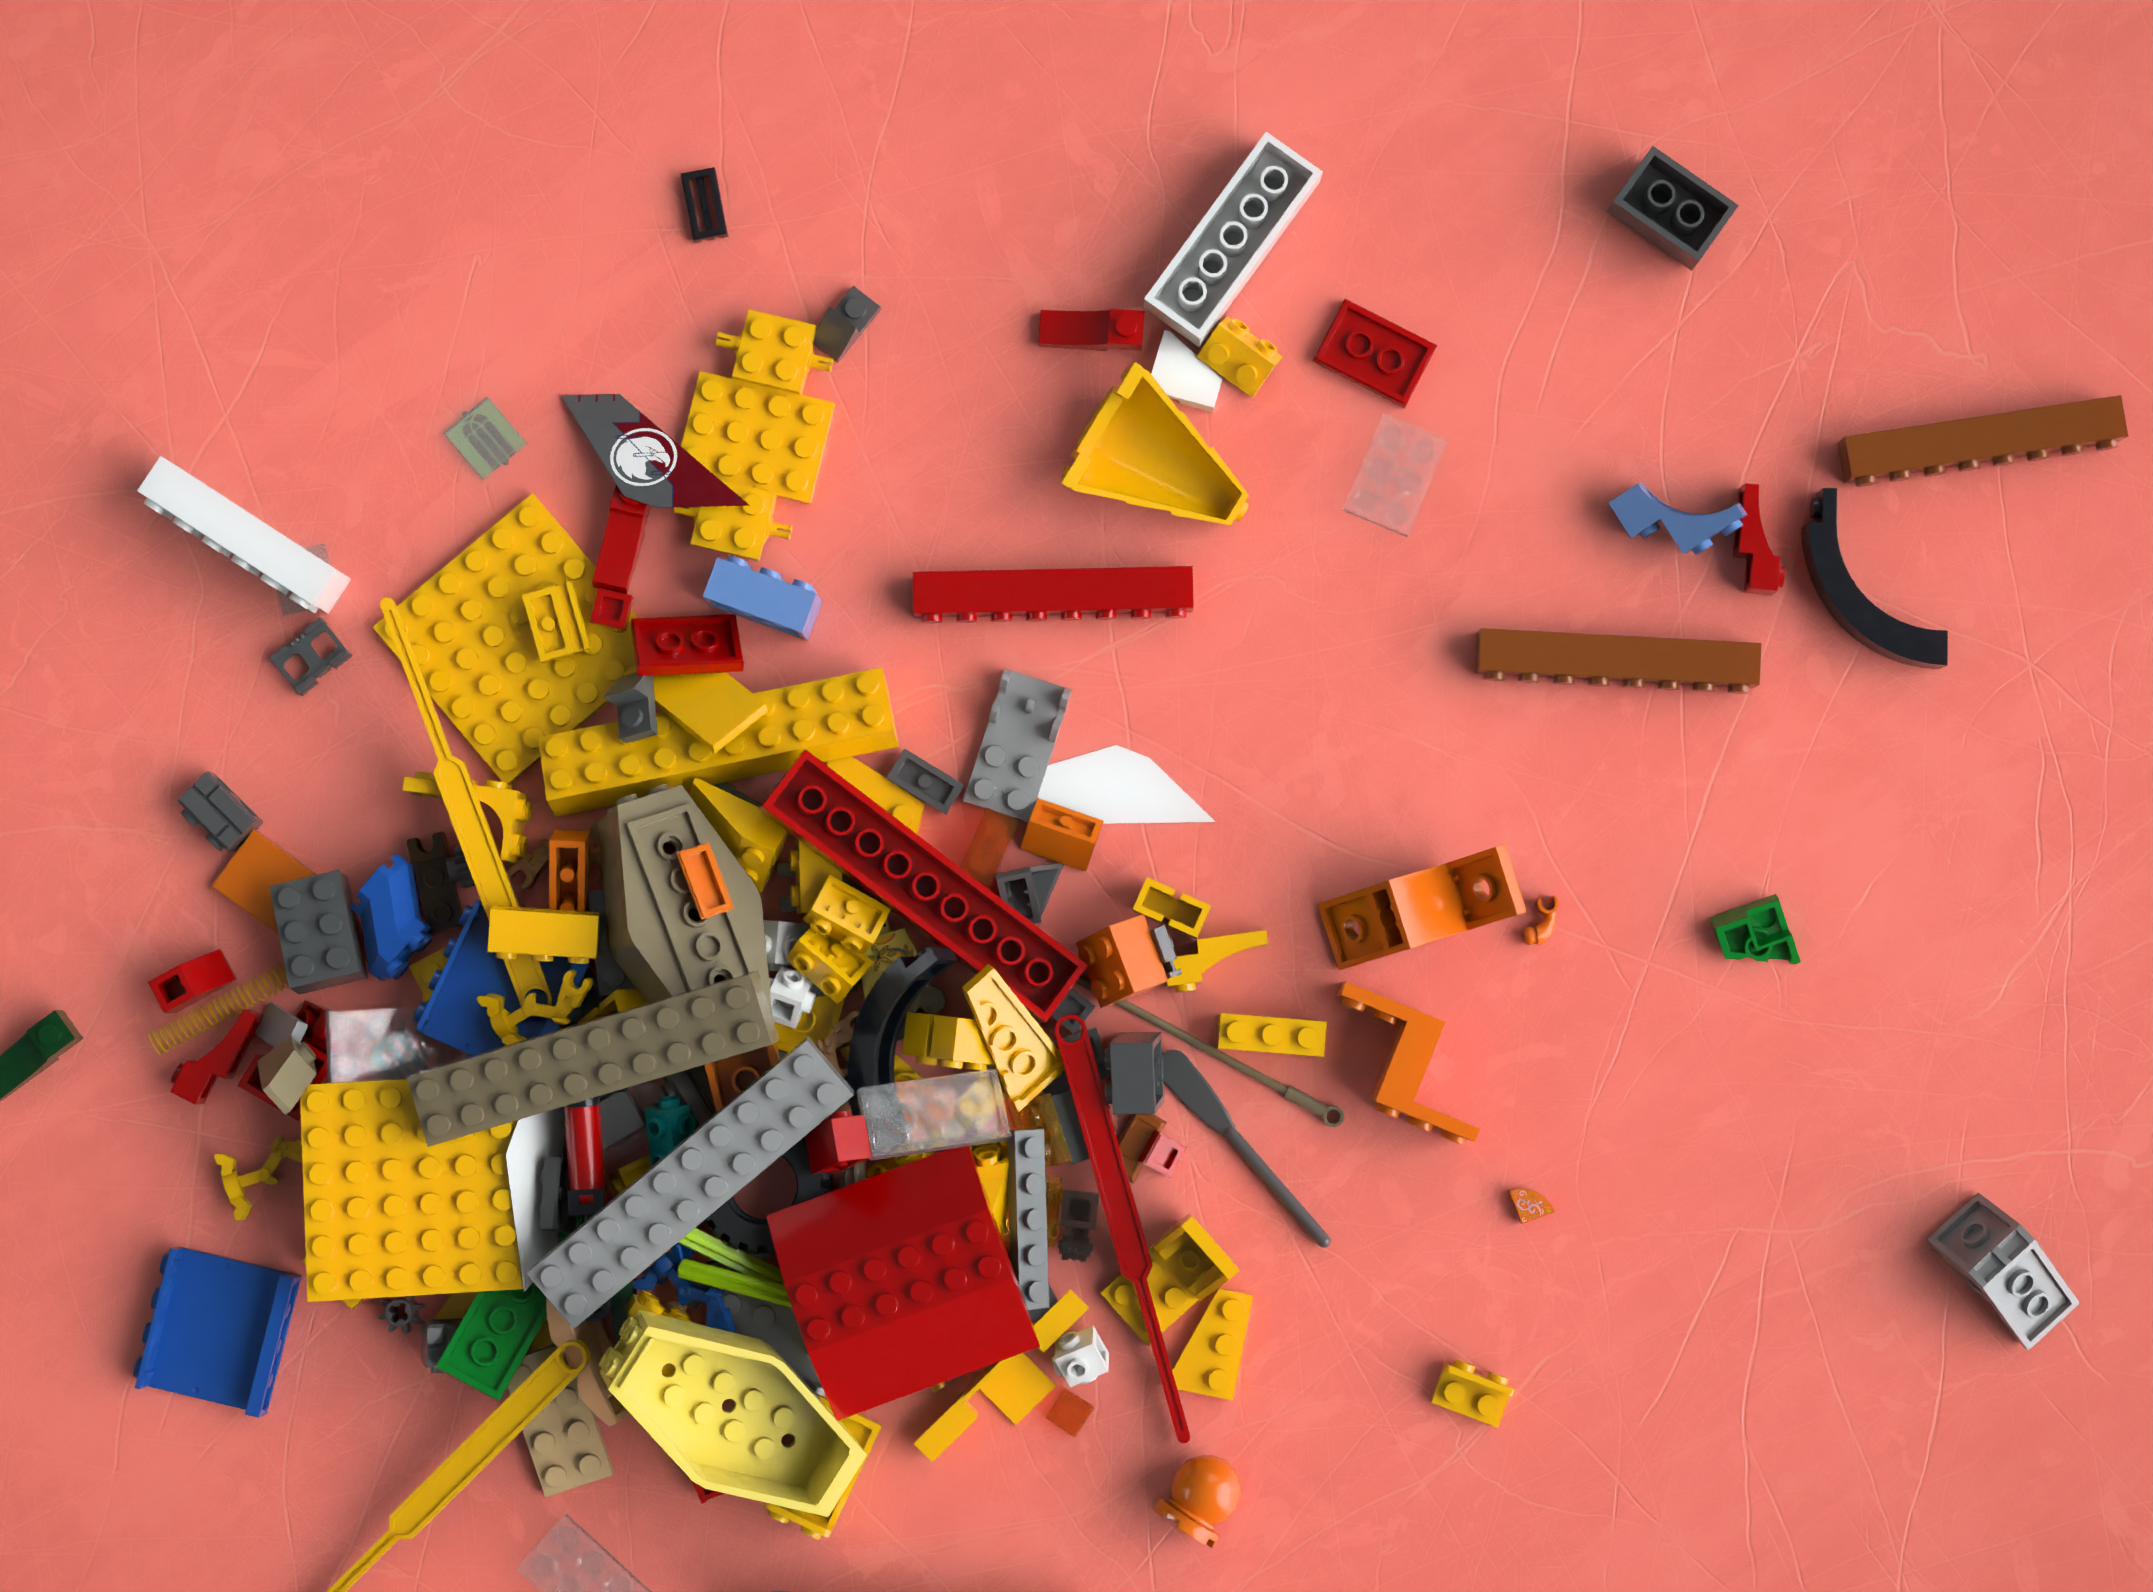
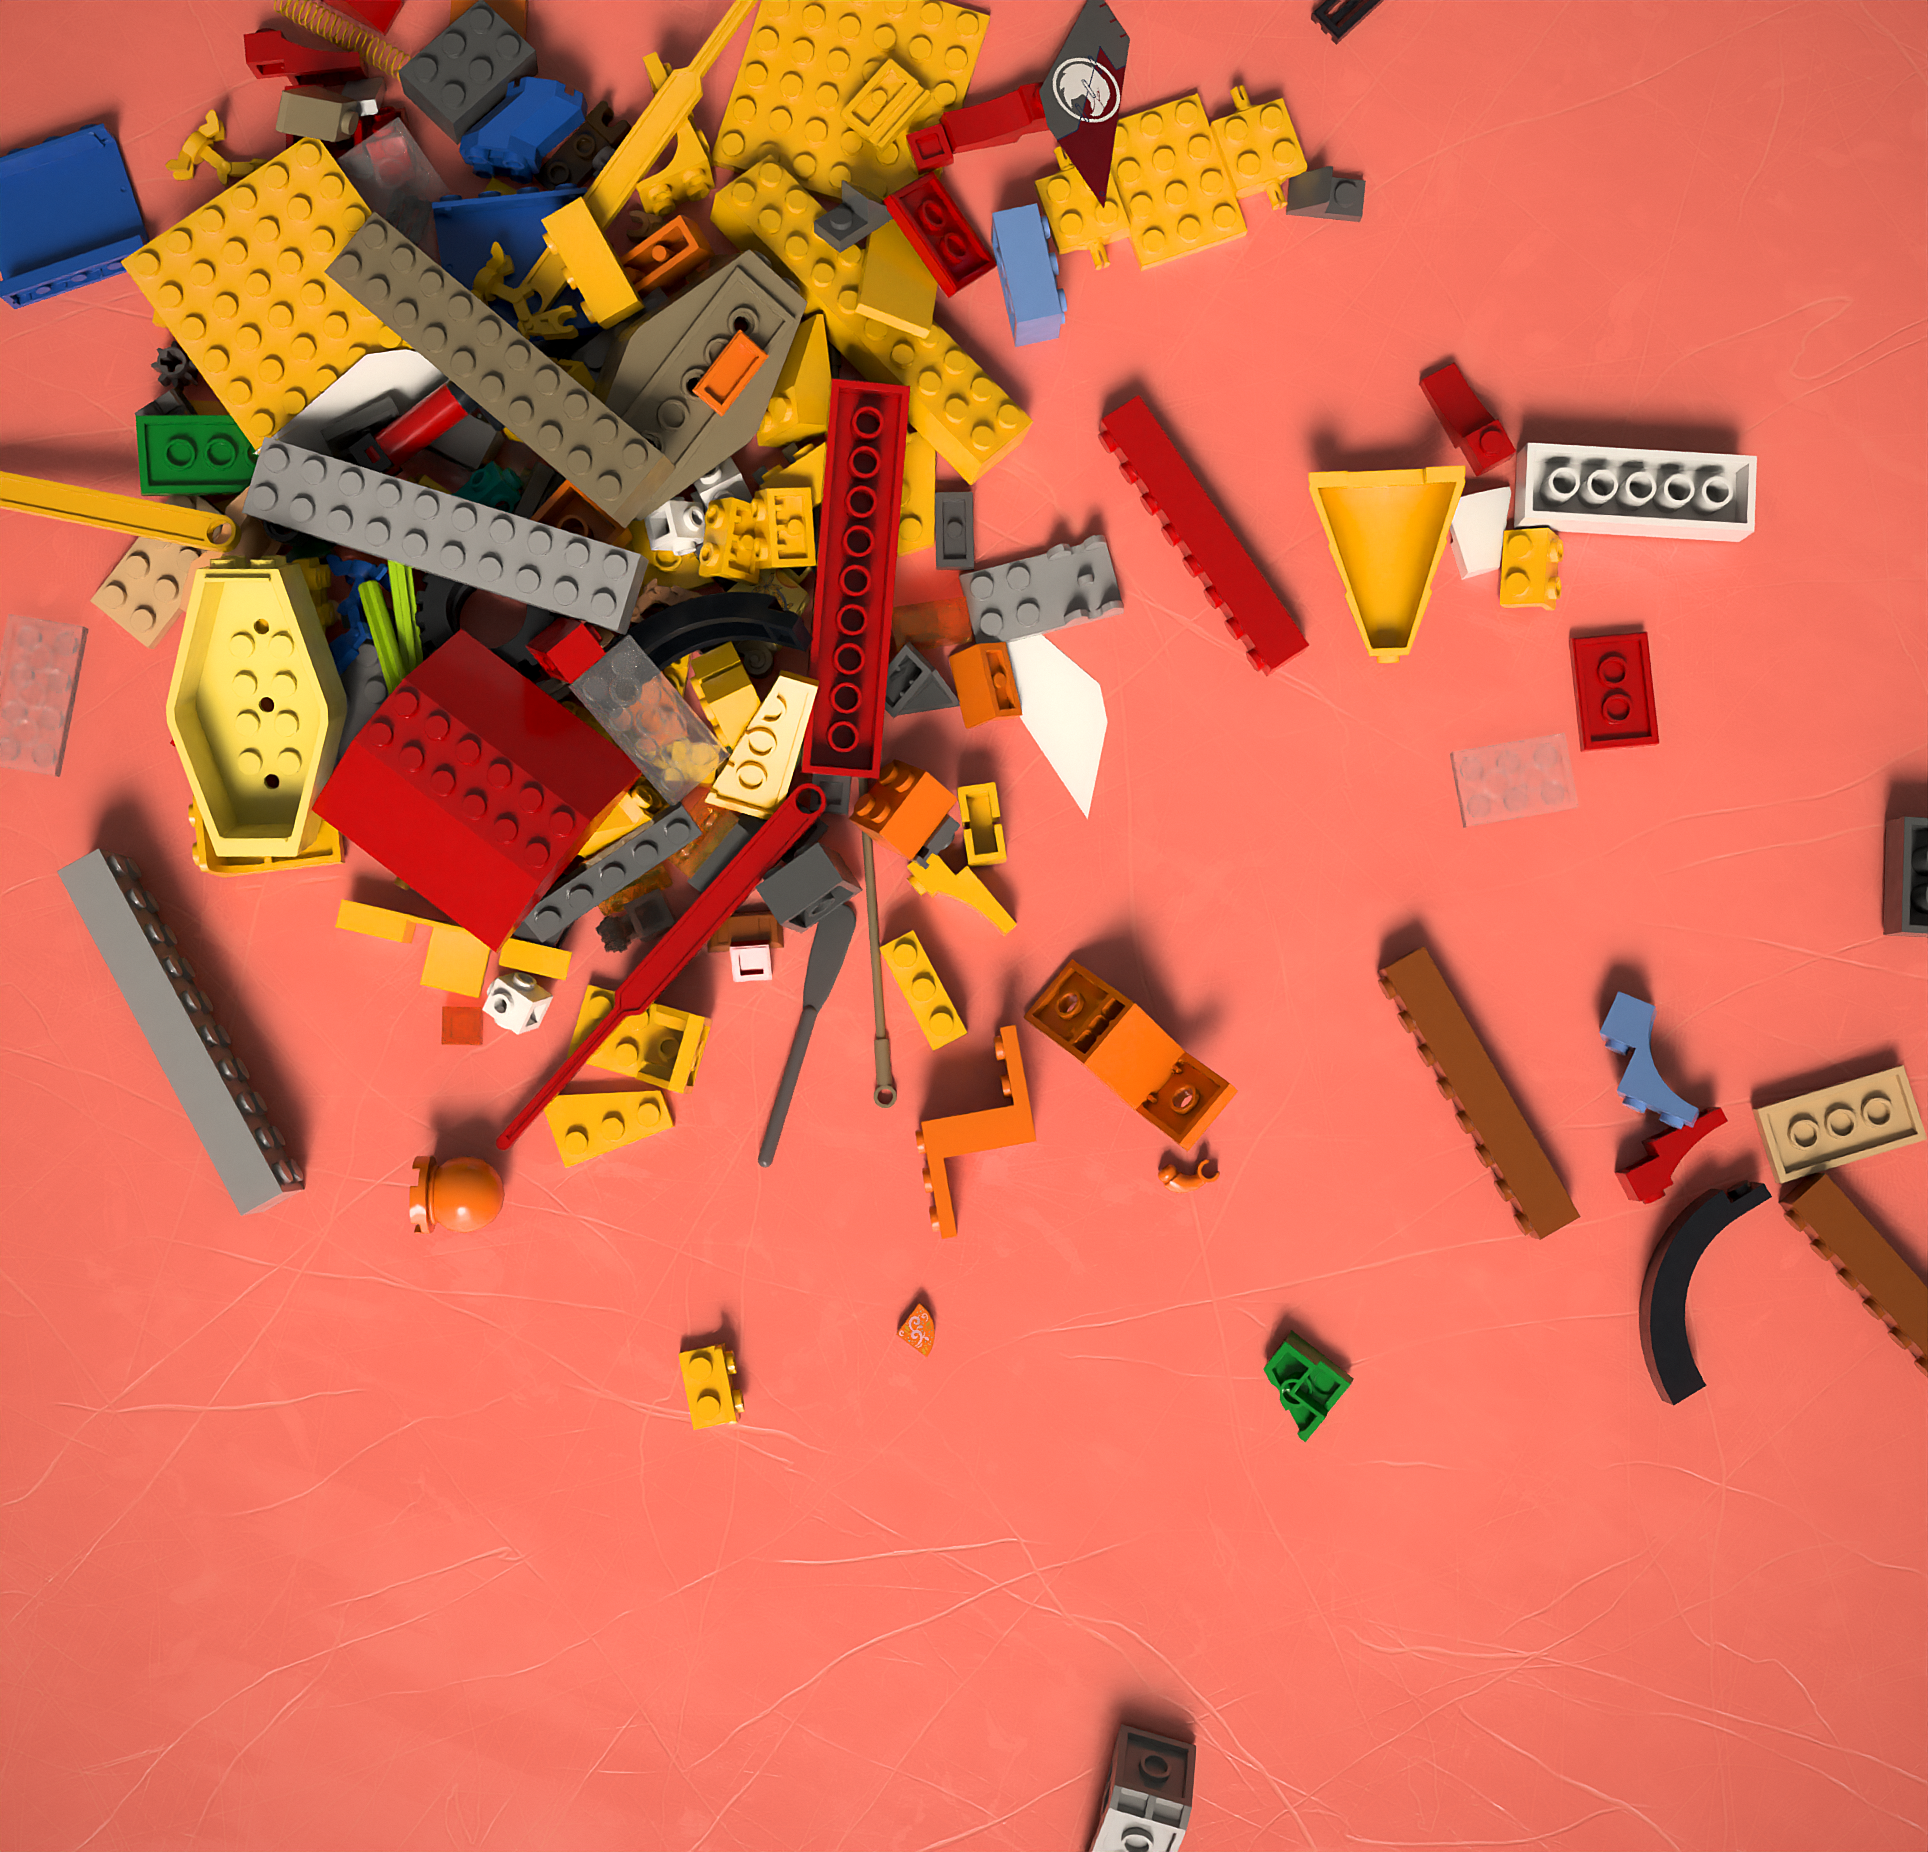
camera: 50 degrees right, 0 degrees up
(1814, 399) = (1839, 1124): none -> tan plate

